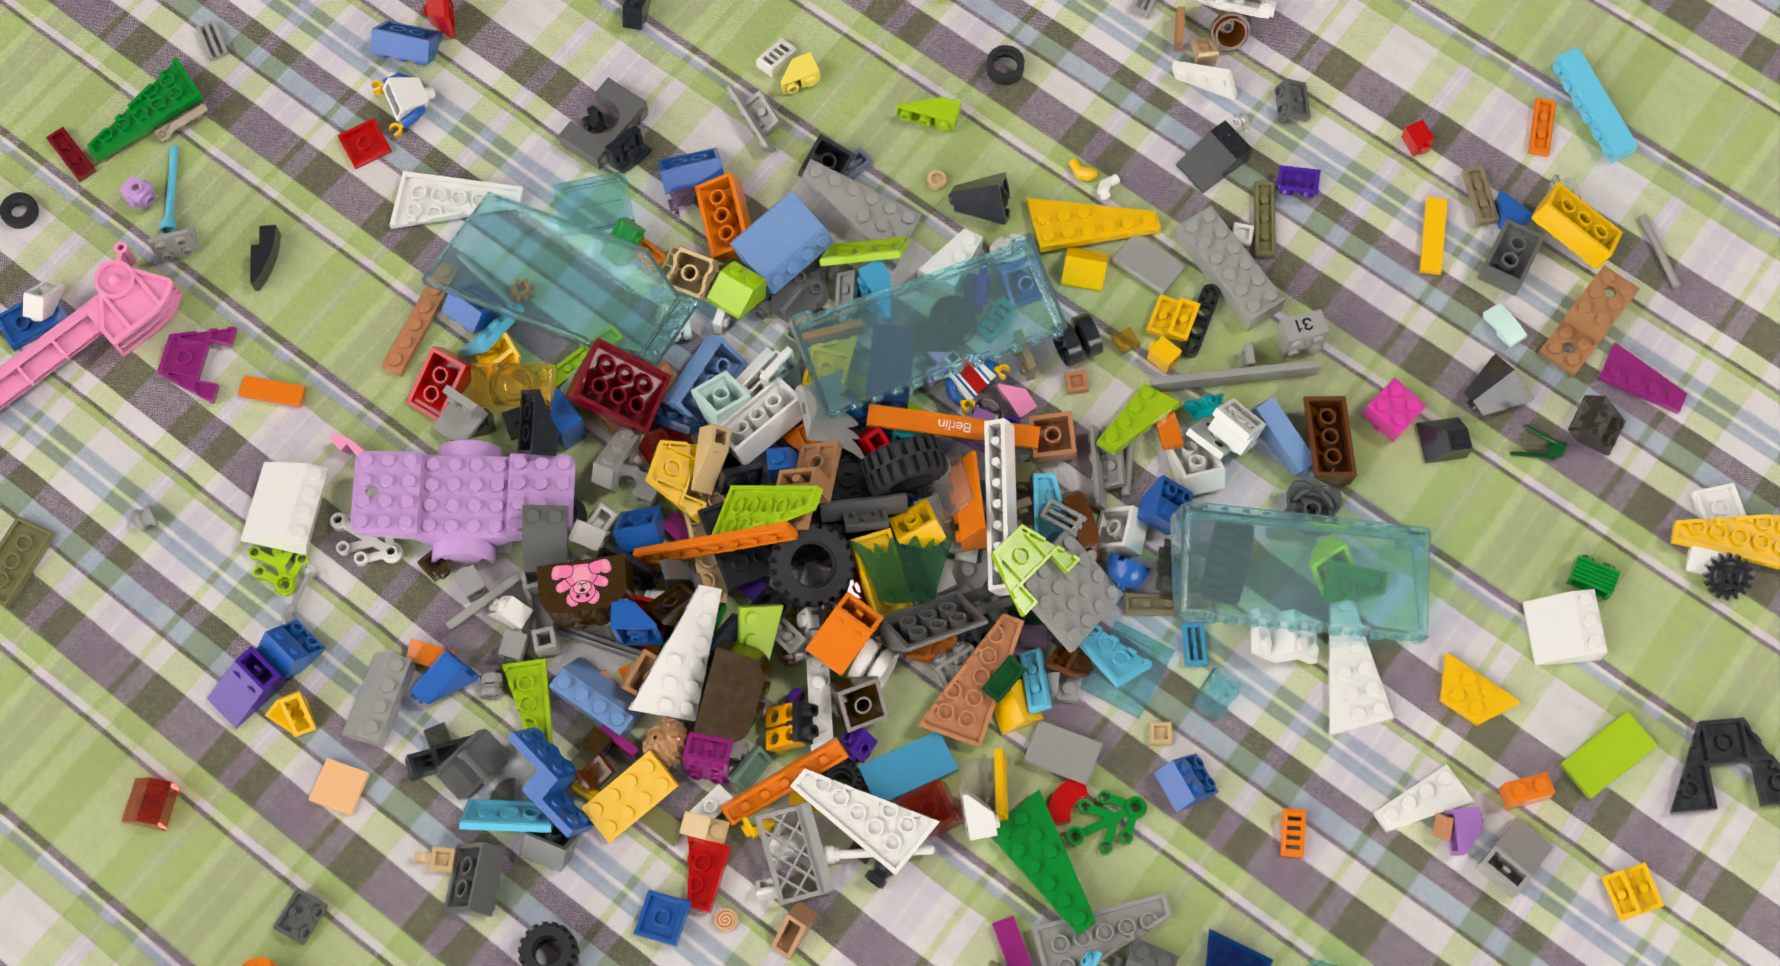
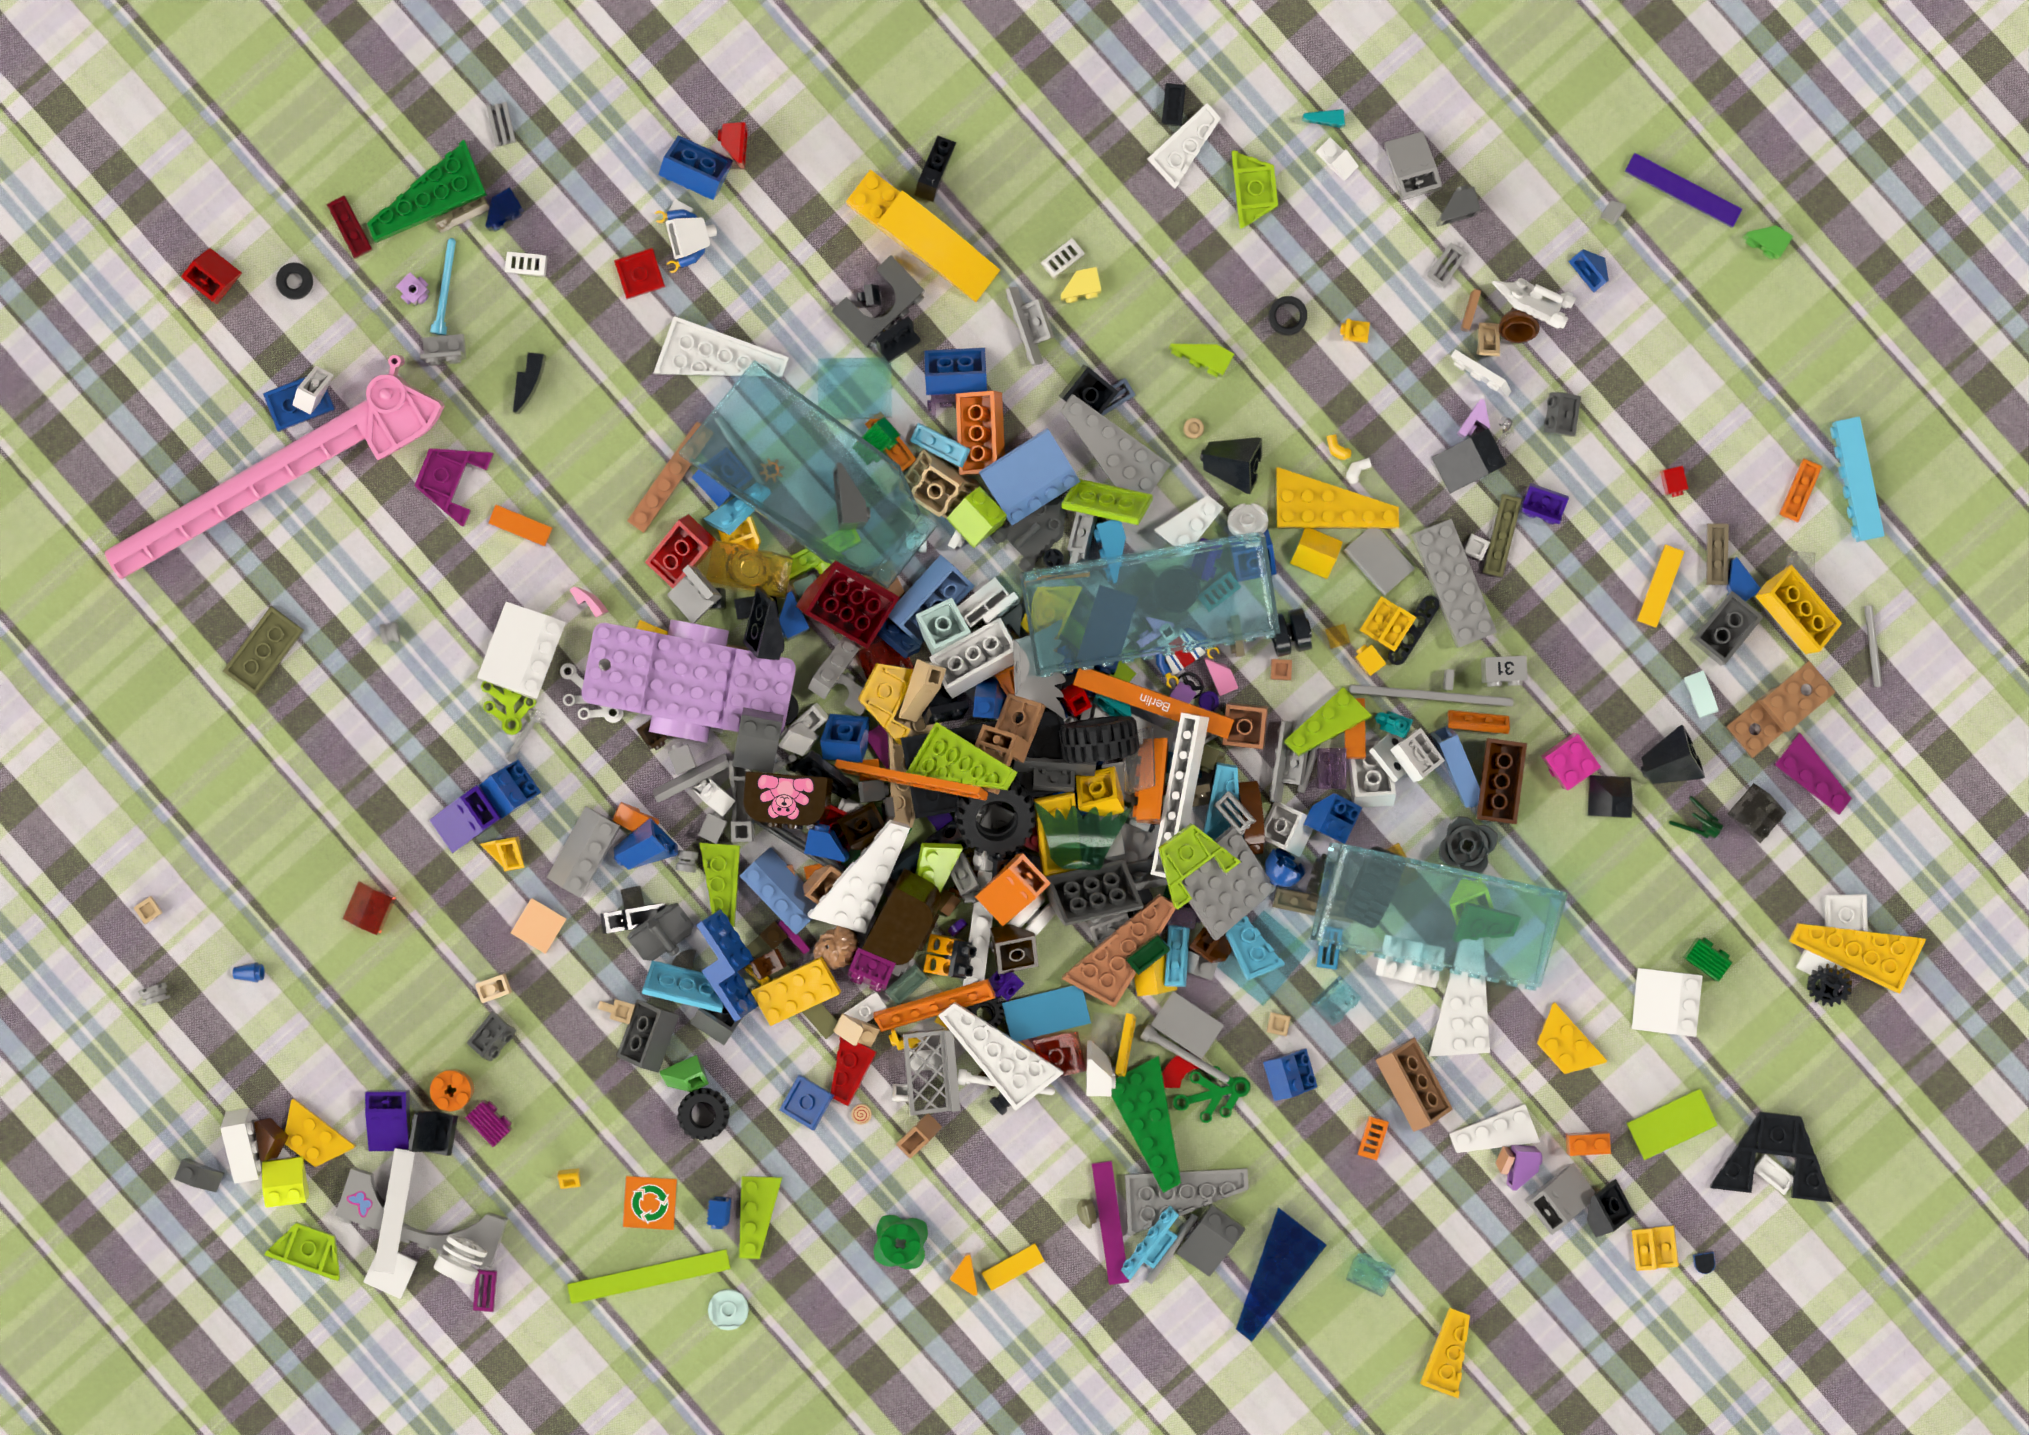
camera: 10 degrees right, 20 degrees up
(21, 899) = (250, 972): none -> blue cone
(221, 109) = (502, 209): none -> clear blue slope
(262, 159) = (542, 264): none -> white slope
(296, 860) = (493, 988): none -> tan slope
(521, 913) = (685, 1075): none -> bright green slope
(605, 295) = (849, 502): none -> dark grey slope
(636, 56) = (922, 235): none -> yellow slope
(688, 236) = (940, 445): none -> medium azure tile
(779, 676) = (948, 902): none -> medium nougat slope
(1026, 770) = (1151, 1035): none -> light grey piece
(1073, 67) = (1355, 331): none -> yellow bracket
(1152, 461) = (1331, 768): none -> clear purple bracket
(1212, 117) = (1477, 415): none -> lavender slope
(1289, 391) = (1478, 722): none -> orange tile
(1321, 767) = (1414, 1084): none -> medium nougat slope
(1569, 858) = (1608, 1209): none -> black slope
(1690, 896) = (1704, 1262): none -> black tile
(1734, 786) = (1774, 1174): none -> white tile

